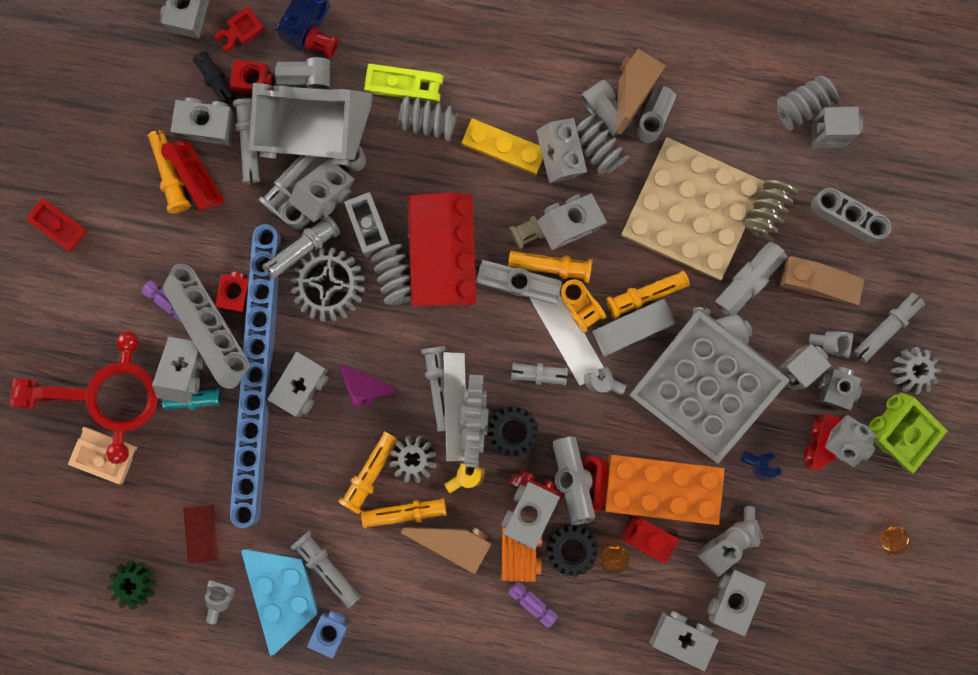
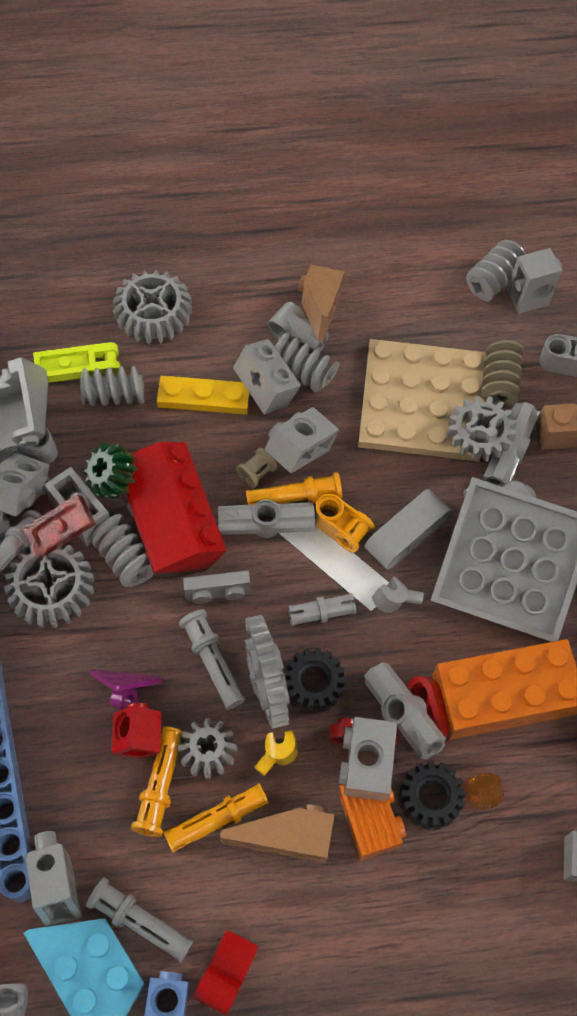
camera: 25 degrees left, 20 degrees down
(272, 533) = (52, 881): none -> light grey torso
(285, 391) = (41, 687): light grey brick -> none
(346, 245) = (59, 526): none -> clear red plate
(362, 429) = (136, 731): none -> red brick
(377, 626) = (226, 972): none -> red panel
(400, 207) = (110, 470): none -> dark green gear
(454, 399) = (238, 674): white sticker -> none
(472, 332) = (225, 585): none -> light grey plate
(502, 33) = (152, 315): none -> light grey gear
(532, 604) = (409, 878): medium lavender axle -> none
(635, 299) = (399, 498): light orange pin -> none
(649, 539) = (518, 751): red torso -> none
(656, 113) = (350, 322): light grey piece -> none
(730, 272) = (482, 428): none -> light grey gear

